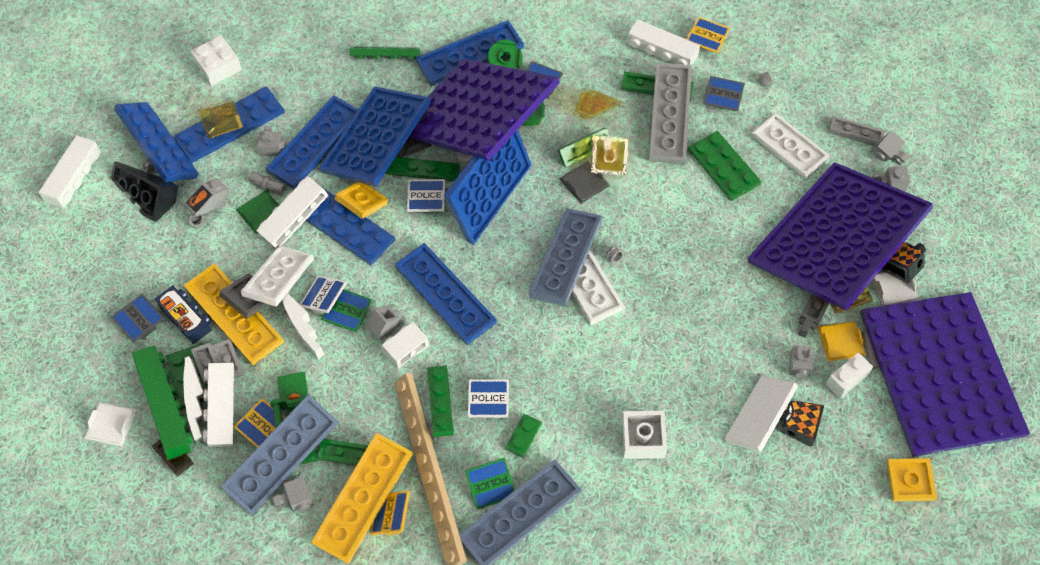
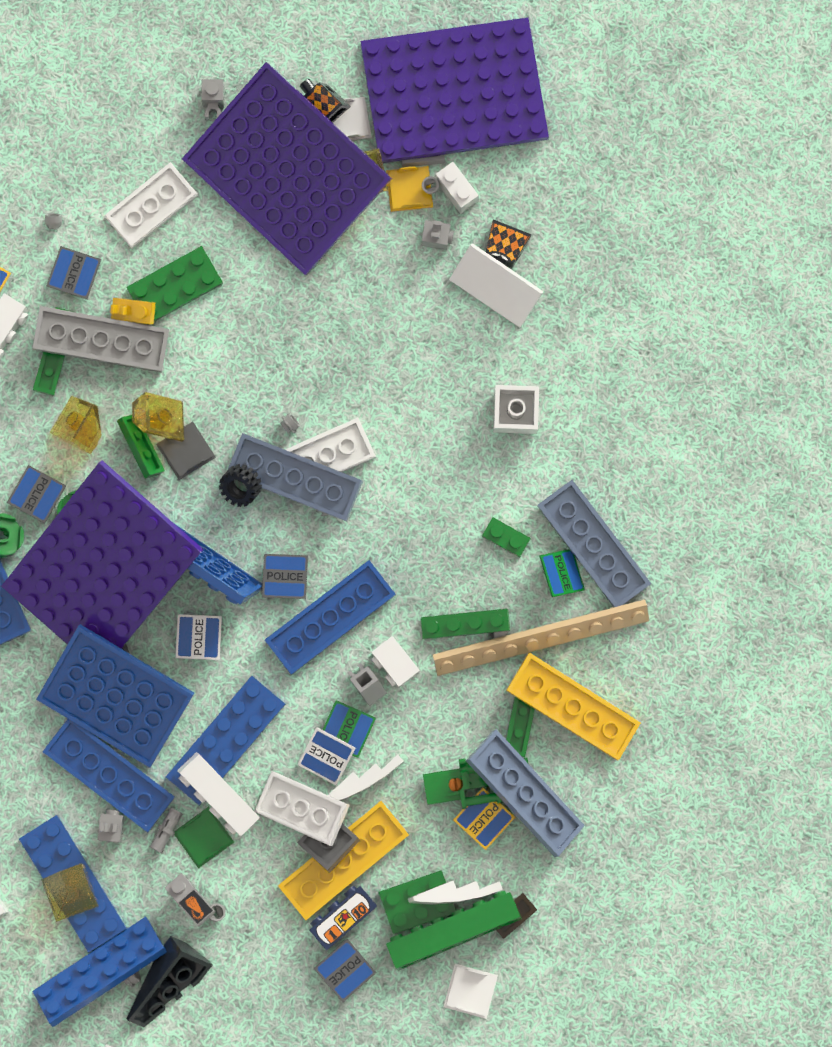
camera: 95 degrees left, 20 degrees up
(218, 353) = (406, 873): light grey slope -> none
(220, 405) = (463, 862): white brick -> none
(296, 495) = (565, 776): light grey brick -> none
(361, 199) = (203, 714): yellow plate -> none
(391, 515) = (592, 674): piece -> none
(423, 169) = (158, 634): green plate -> none
(479, 256) = (284, 576): none -> piece
(488, 399) = (464, 572): piece -> none
(555, 215) = (247, 478): none -> black tyre
(697, 133) = (133, 310): none -> yellow plate
(812, 314) = (382, 216): dark grey hinge -> none
(850, 350) = (428, 181): none -> light grey hinge
(855, 131) = (136, 126): light grey tile -> none
(890, 147) = (168, 93): light grey brick -> none
(911, 480) = (573, 145): yellow plate -> none

